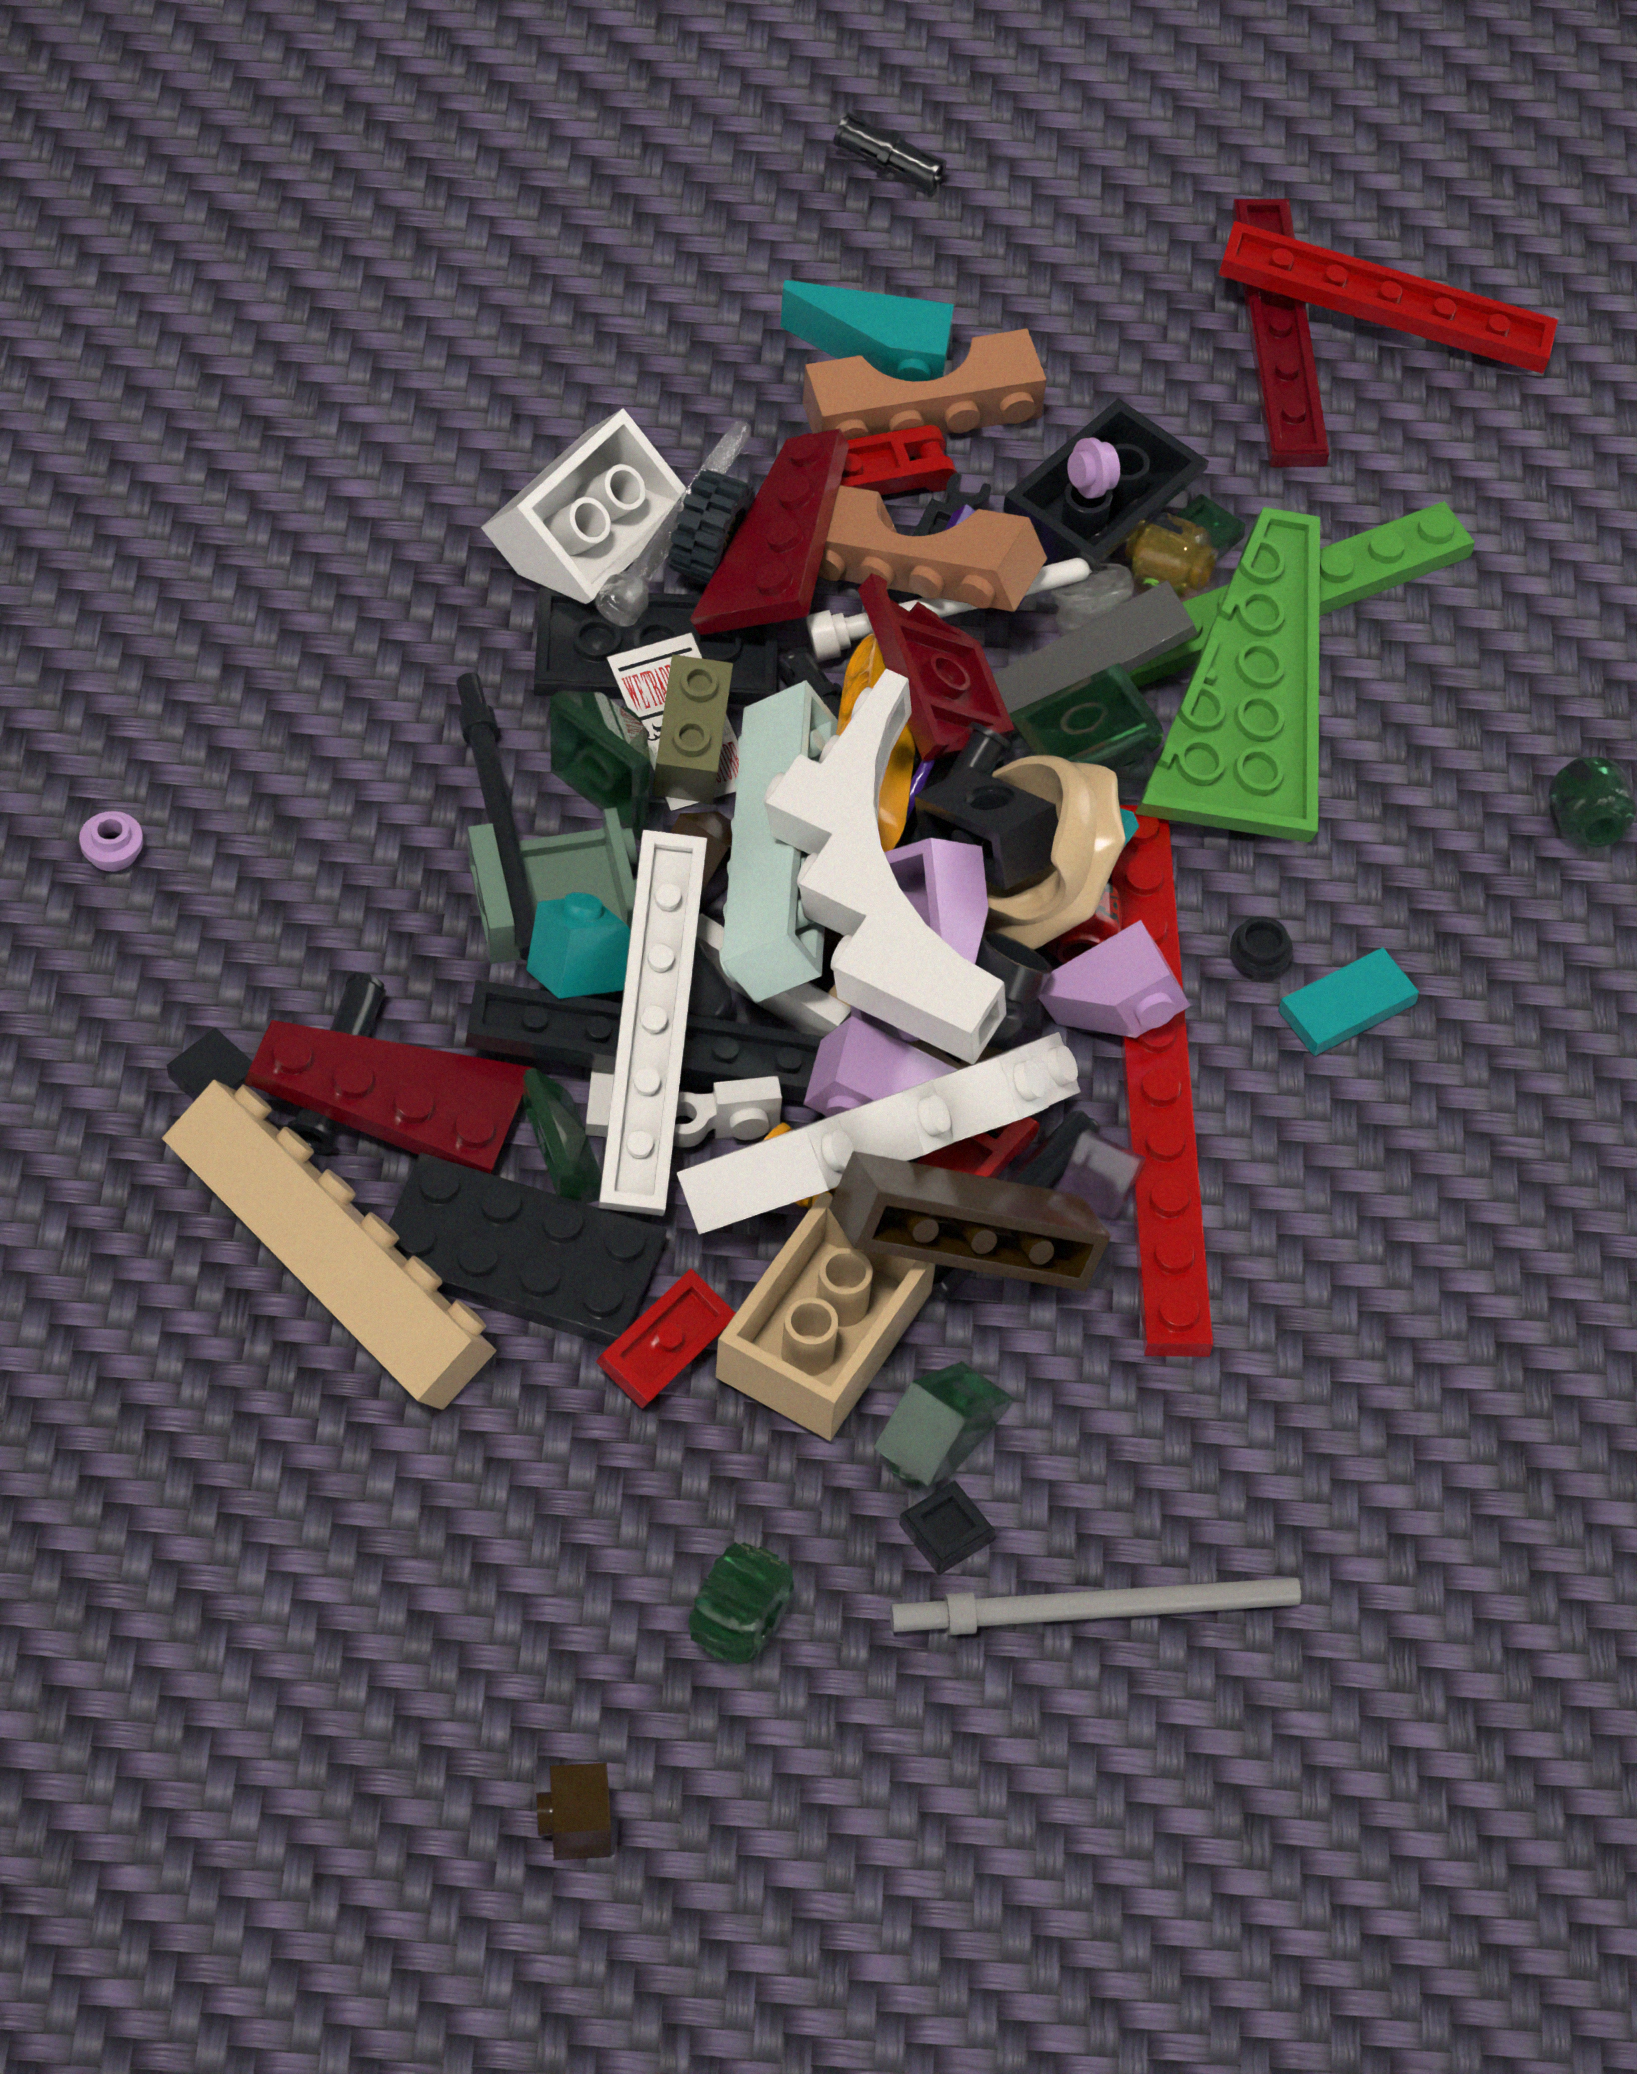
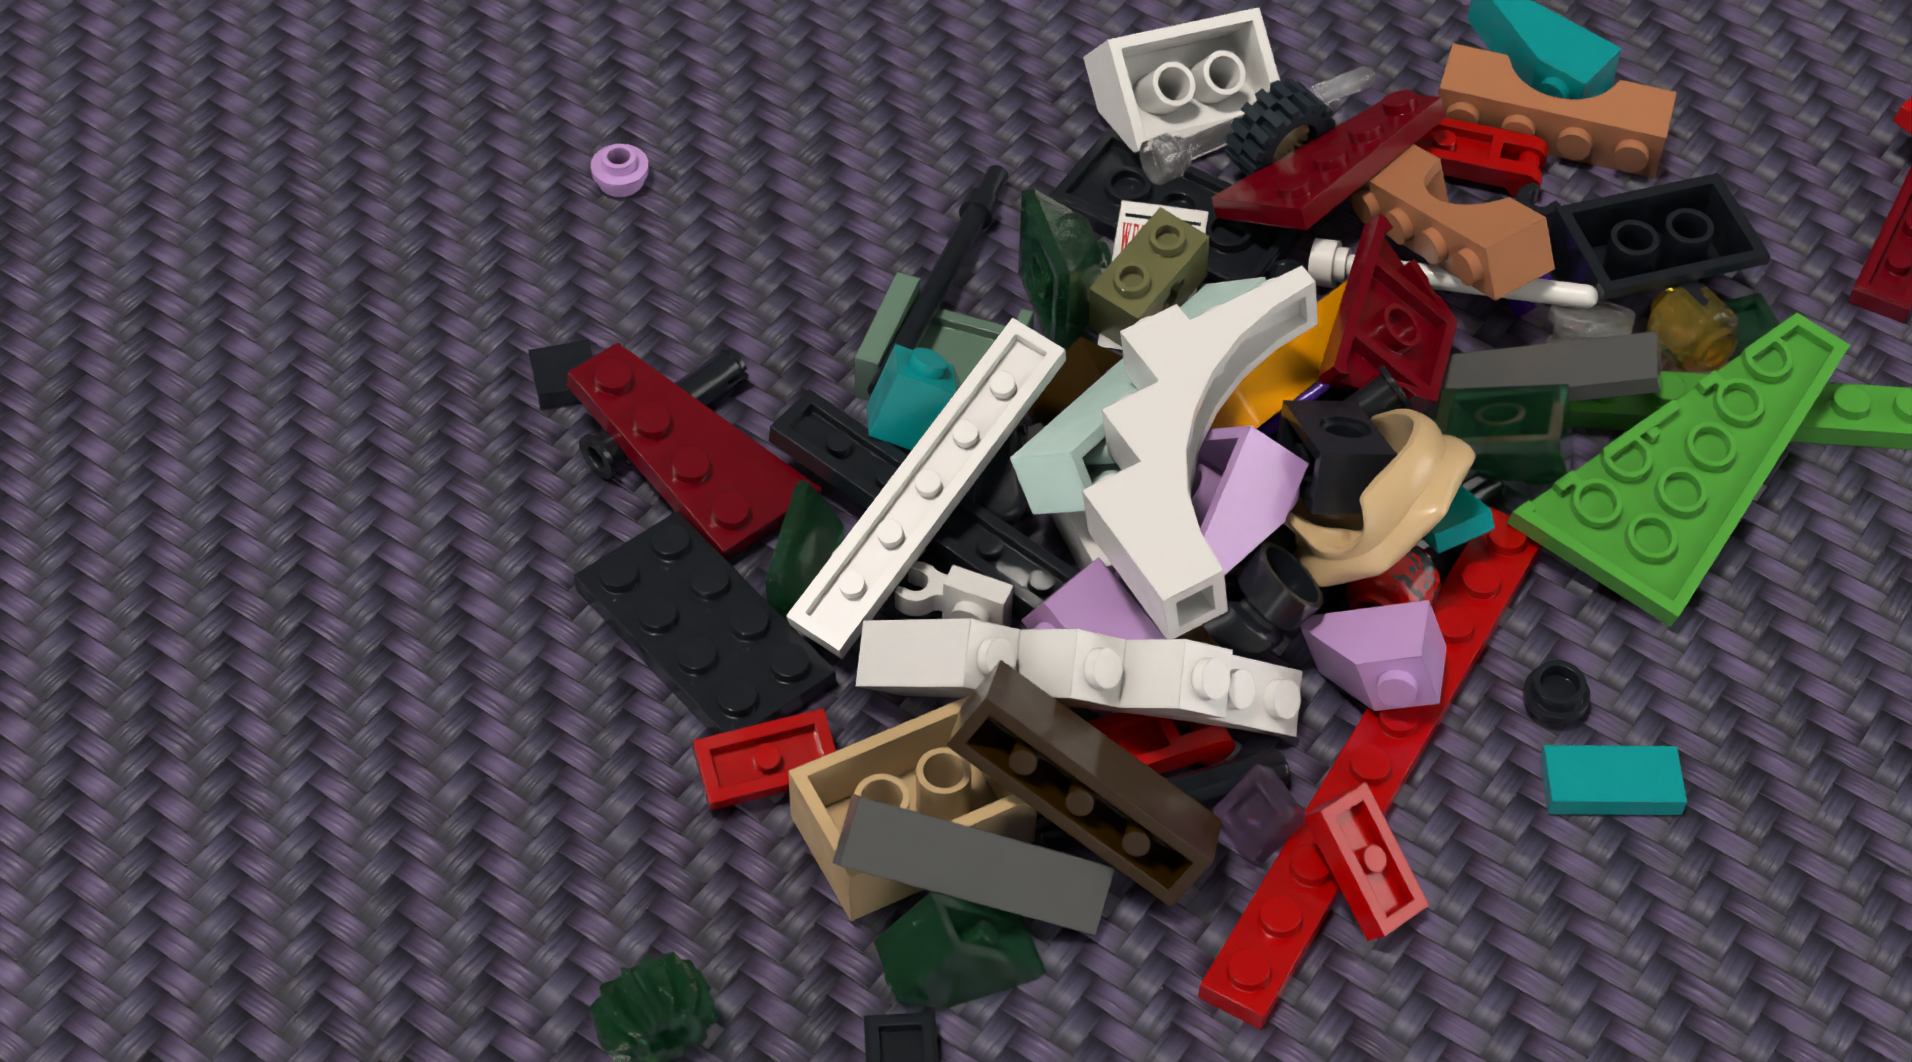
camera: 35 degrees right, 5 degrees down
(330, 1244) = (540, 548): tan brick -> none
(920, 1339) = (973, 864): none -> dark grey tile
(1093, 467) = (1647, 211): lavender plate -> none
(1216, 1171) = (1366, 861): none -> plate

